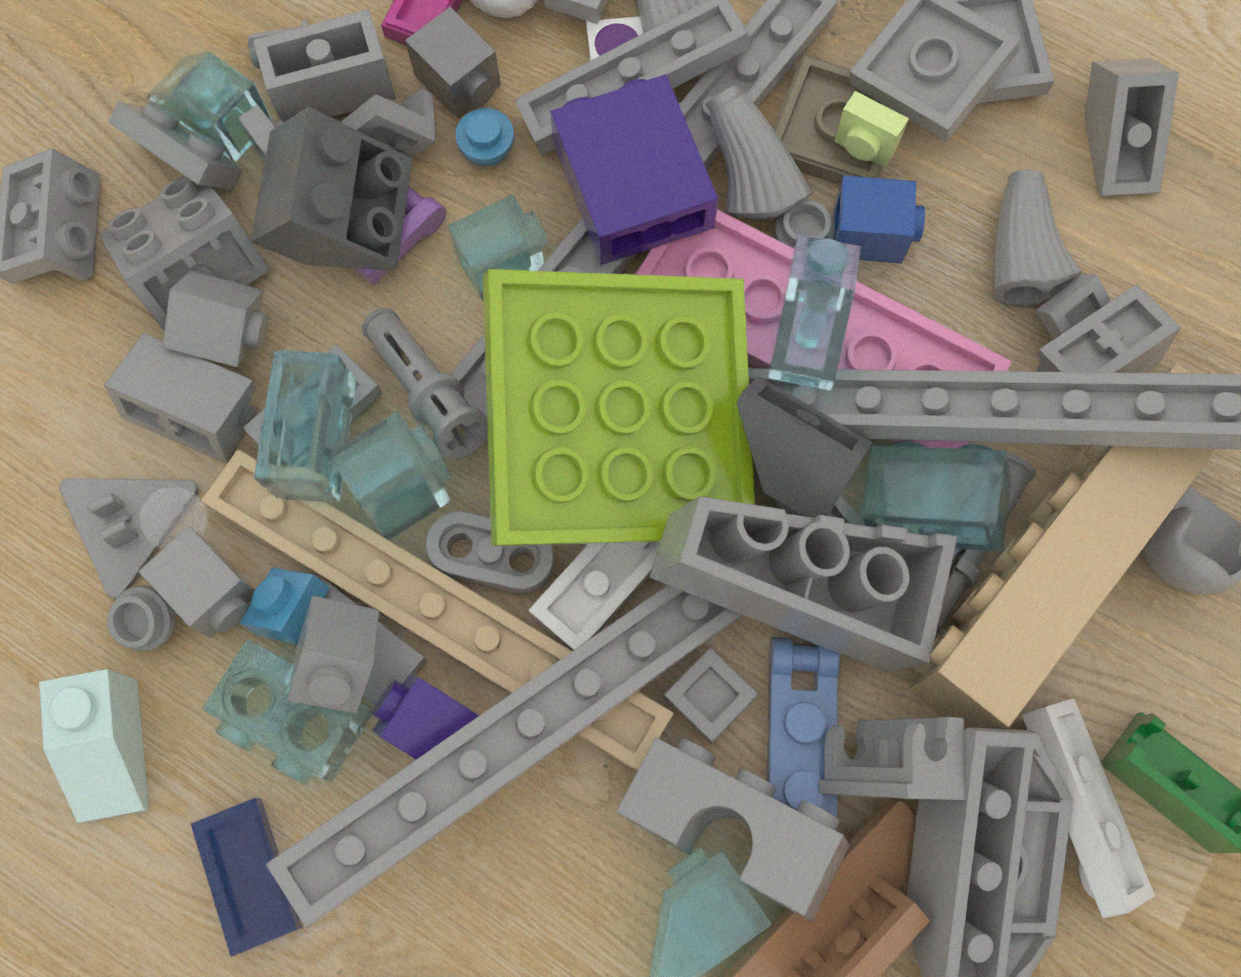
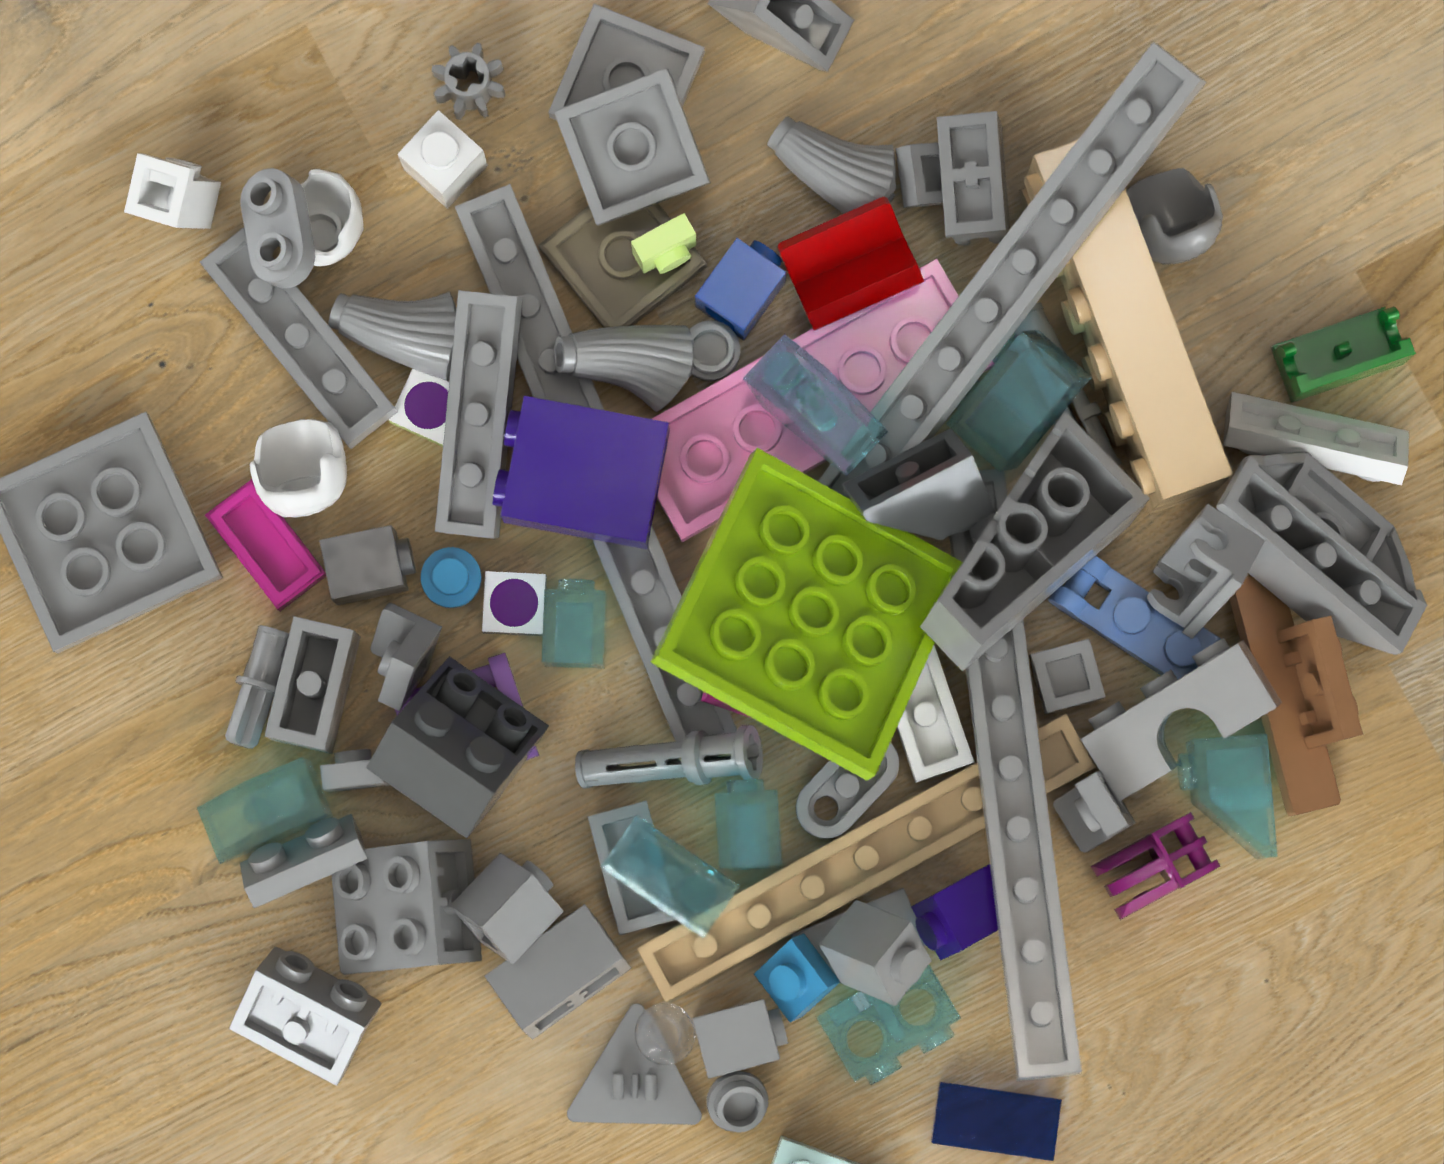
camera: 60 degrees left, 10 degrees up
(489, 186) = (513, 603): none -> tile
(594, 794) = (1092, 812): none -> light grey bracket
(616, 914) = (1161, 862): none -> magenta arm
(960, 287) = (850, 262): none -> red panel

